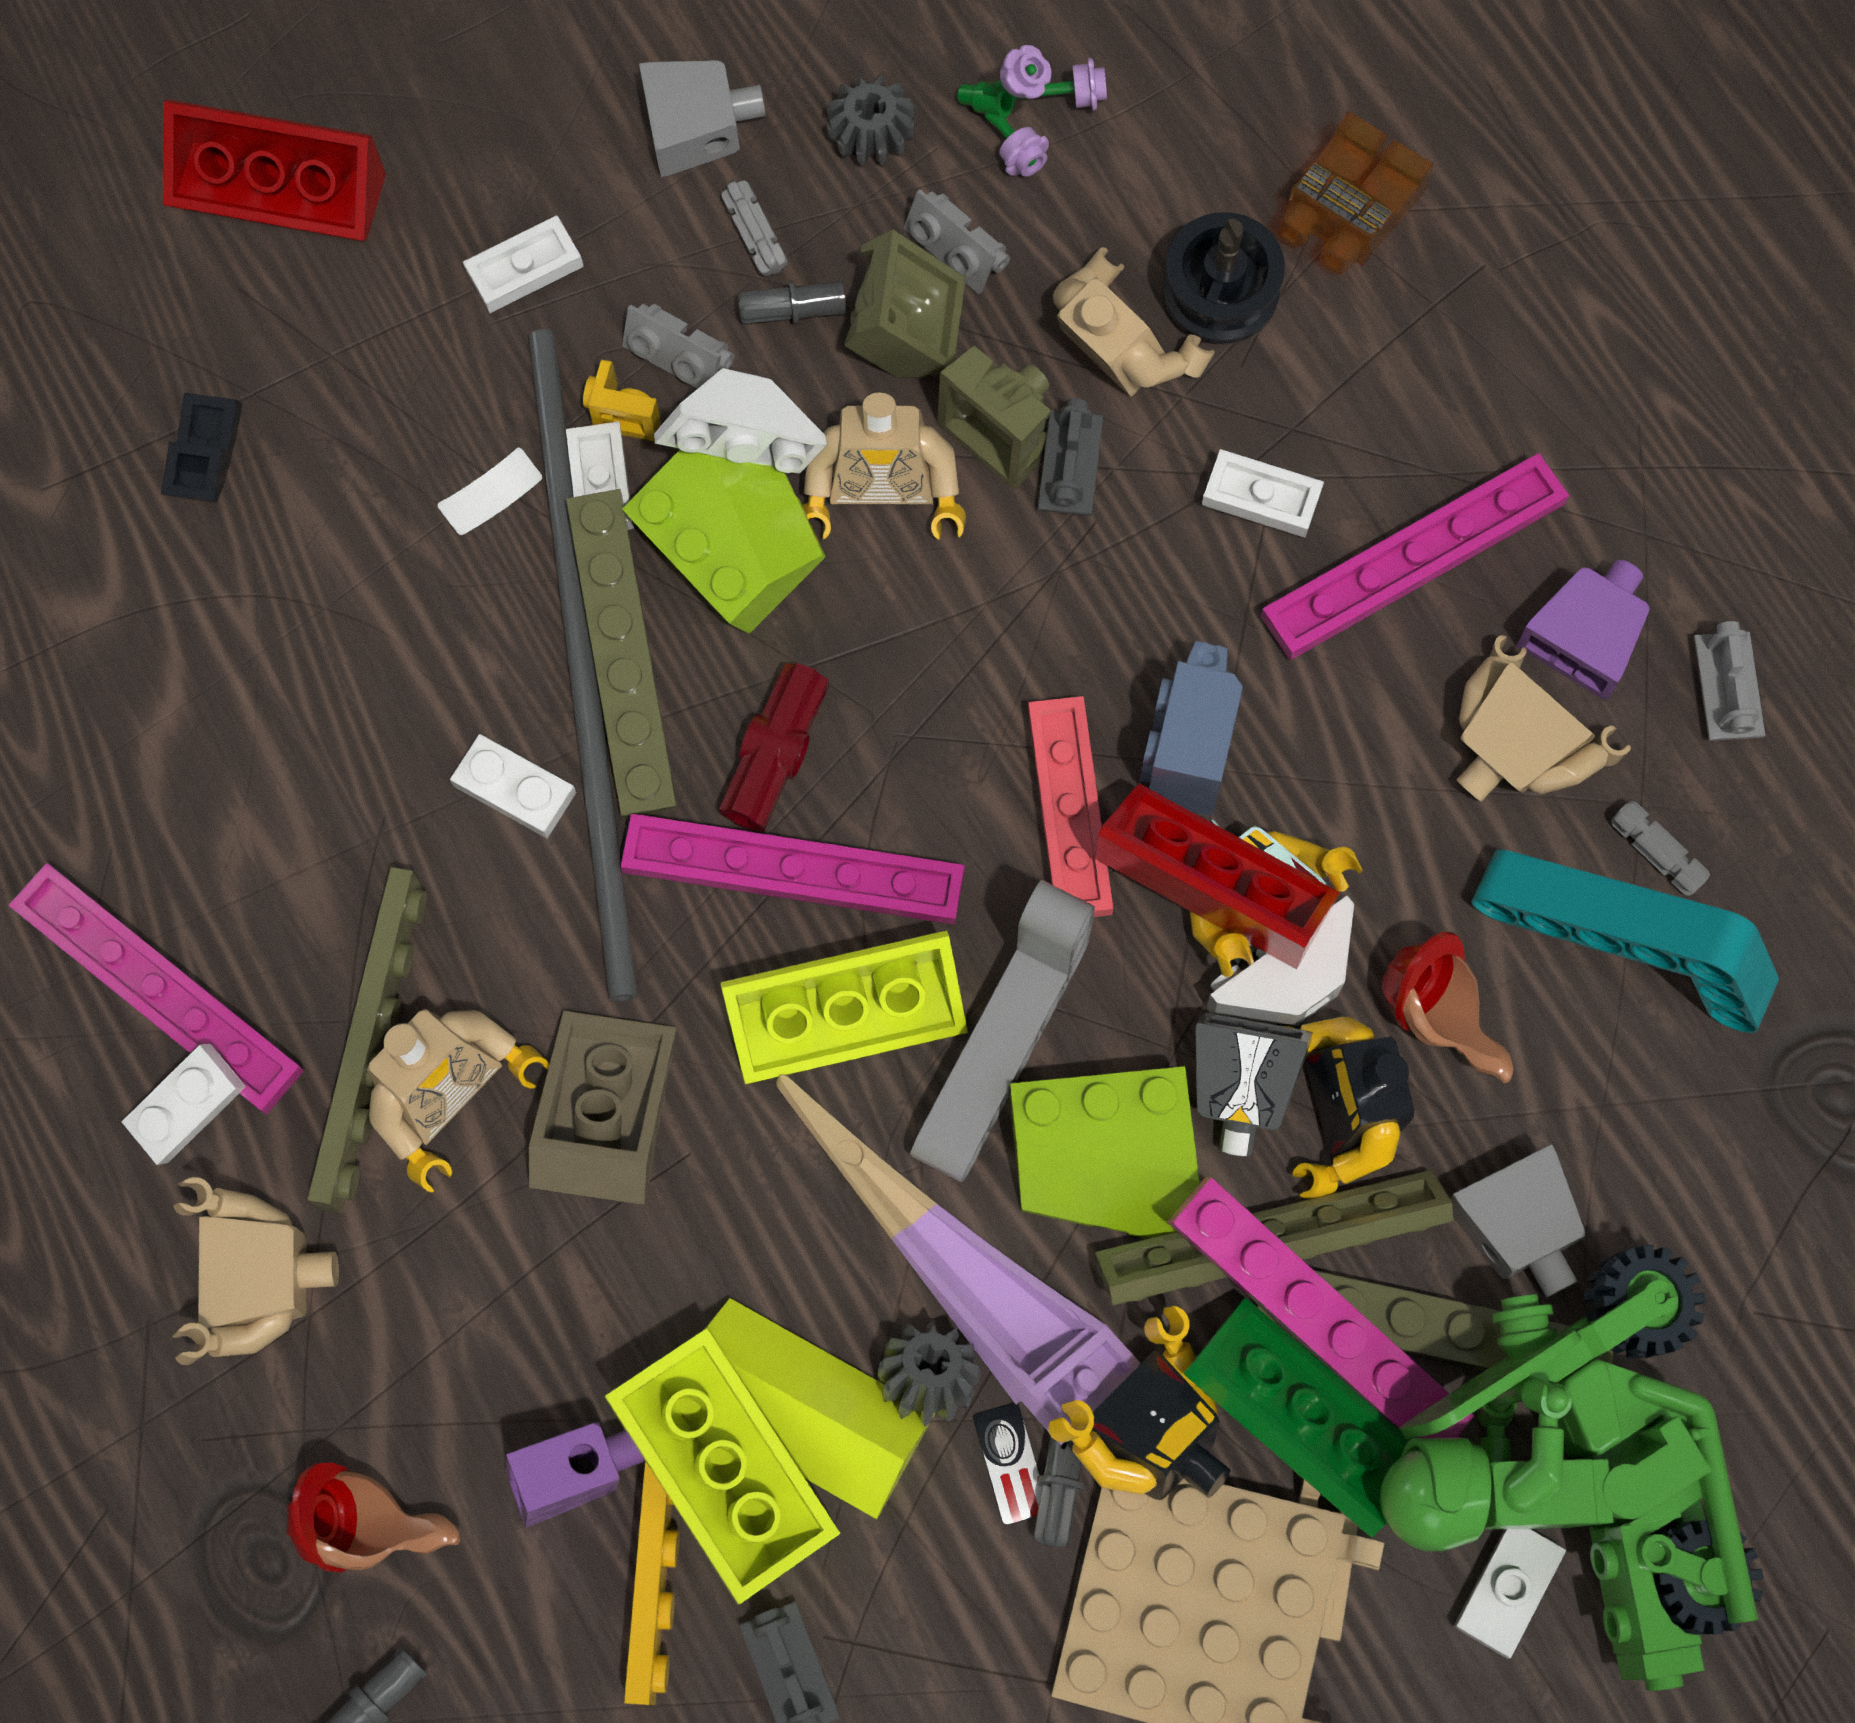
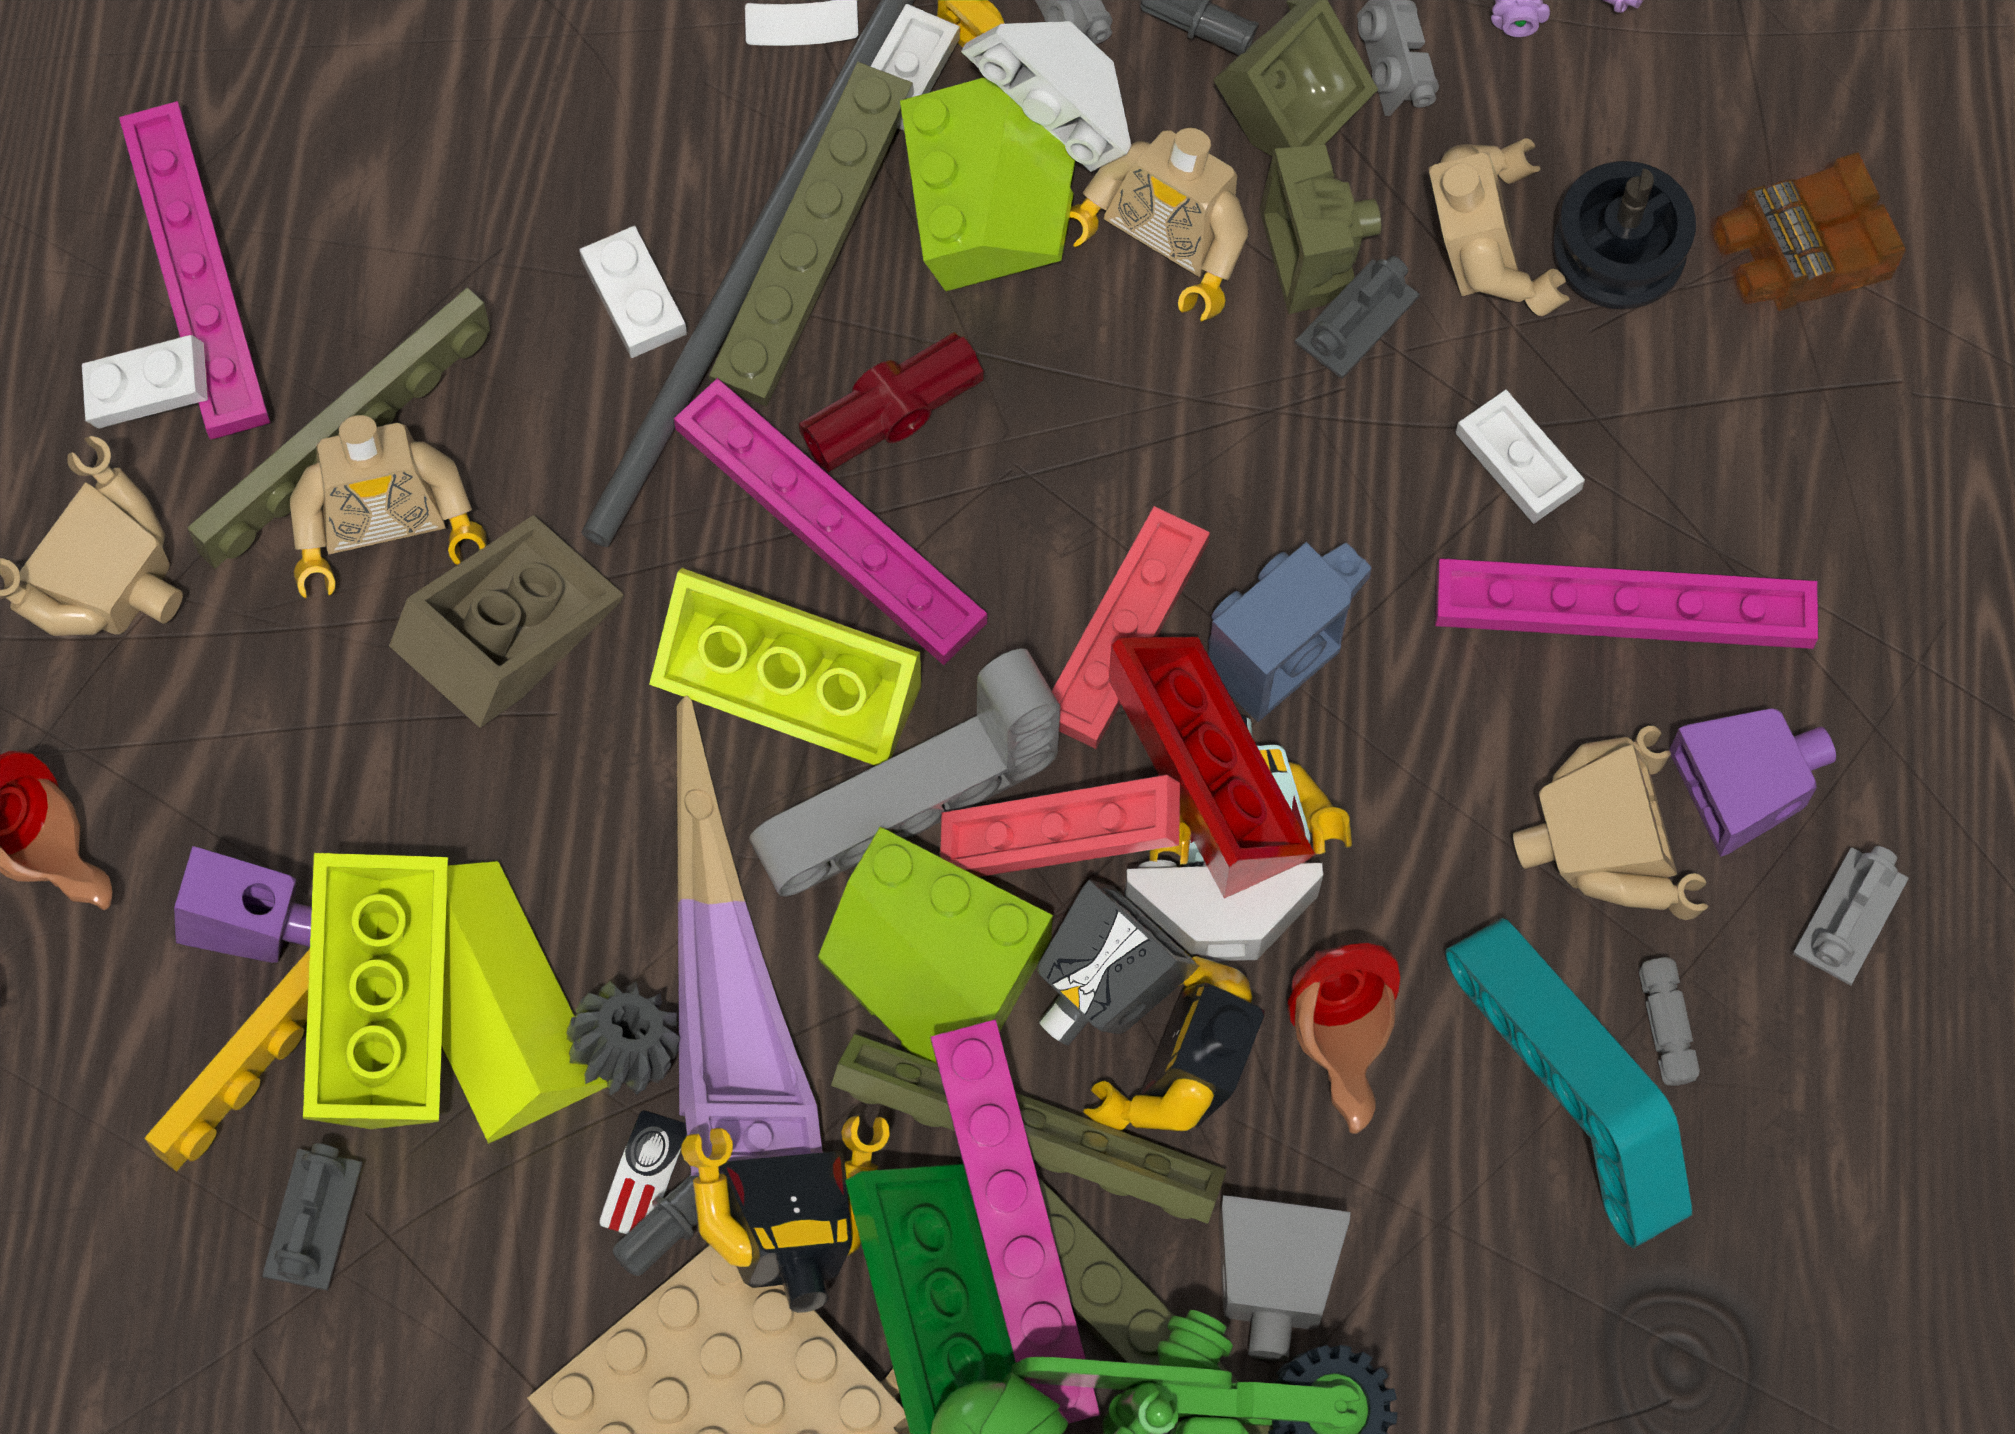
camera: 30 degrees right, 5 degrees down
(1145, 995) = (1063, 827): none -> coral plate

